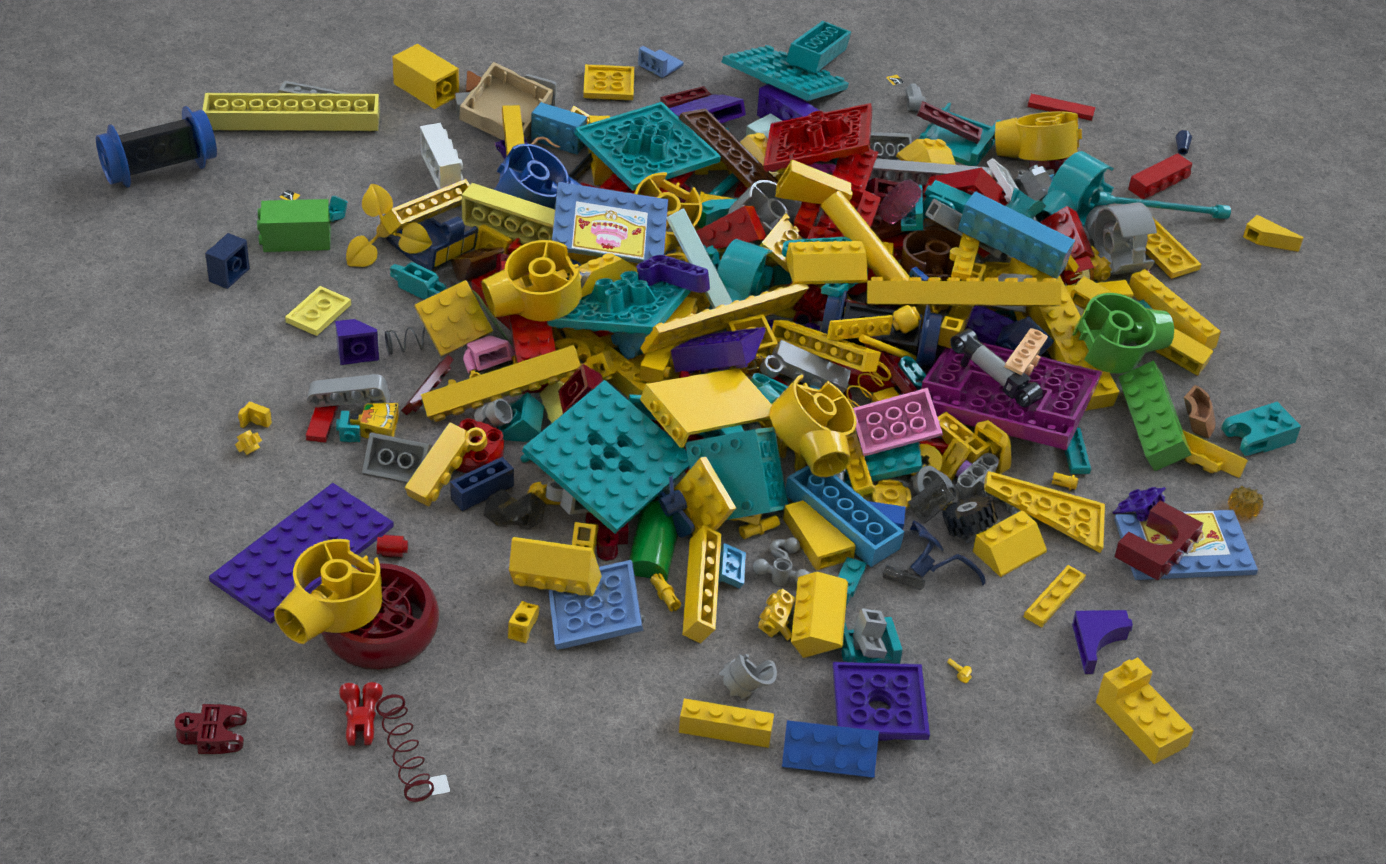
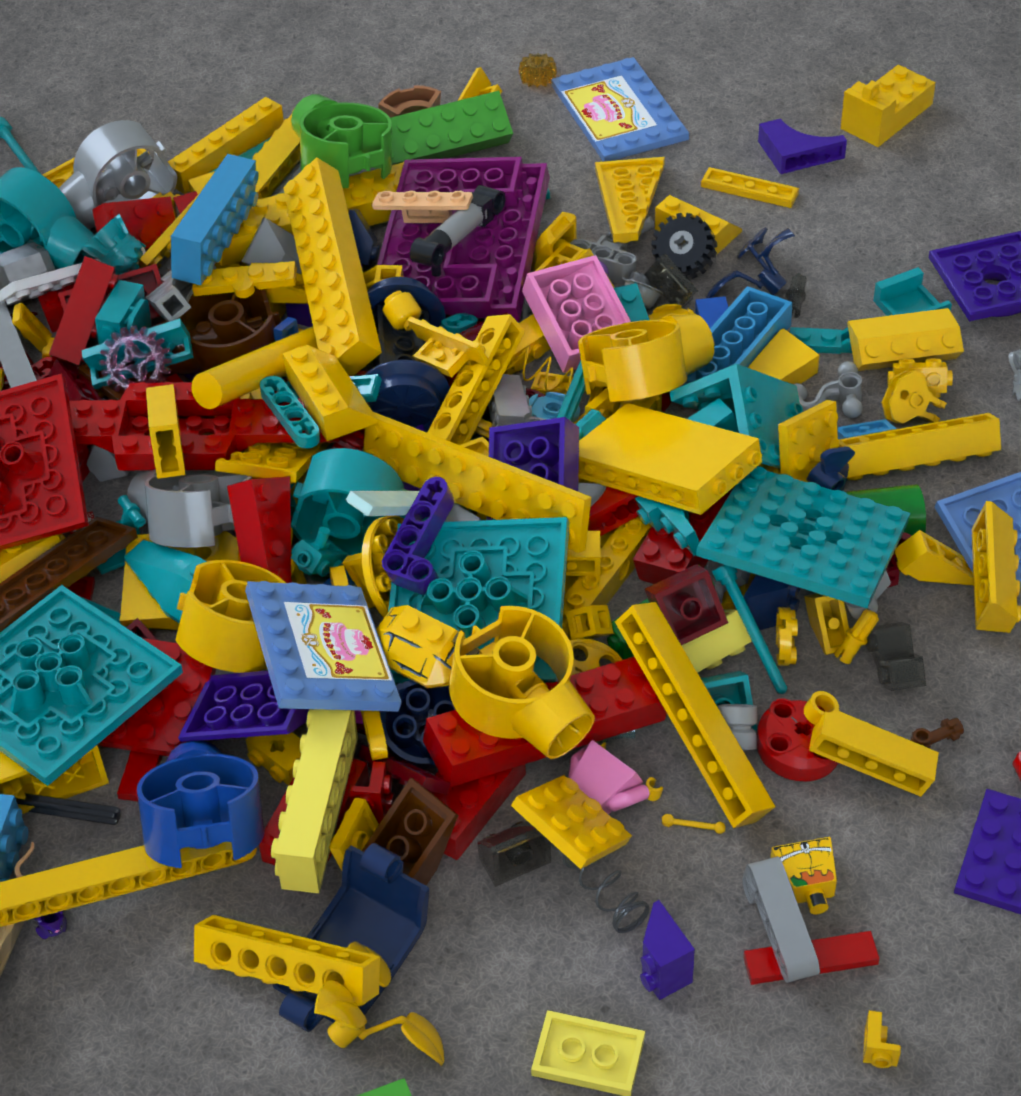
camera: 100 degrees left, 5 degrees up
(248, 442) = (937, 1032): yellow gear -> none
(347, 432) = (842, 910): teal bracket -> none
(393, 456) = (865, 821): light grey slope -> none
(417, 280) = (469, 925): teal hinge -> none
(431, 381) = (699, 837): dark red plate -> none
(440, 155) = (124, 999): white brick -> none
(444, 505) = (949, 729): none -> reddish brown bar
(481, 483) = (874, 700): dark blue brick -> none
(489, 314) = (557, 766): bright green piece -> none
(665, 592) = (941, 482): yellow pin -> none
(749, 595) = (909, 398): none -> yellow hinge
(868, 633) = (914, 294): light grey brick -> none
(885, 347) = (464, 330): yellow bar -> none
(964, 672) = (904, 232): yellow hand -> none
(1066, 481) = (568, 194): yellow pin -> none
(1141, 502) = (580, 136): dark purple hinge -> none
(1158, 559) = (622, 96): dark red arch -> none
(1262, 428) = (414, 62): teal brick -> none
(1272, 235) = (37, 90): yellow slope -> none

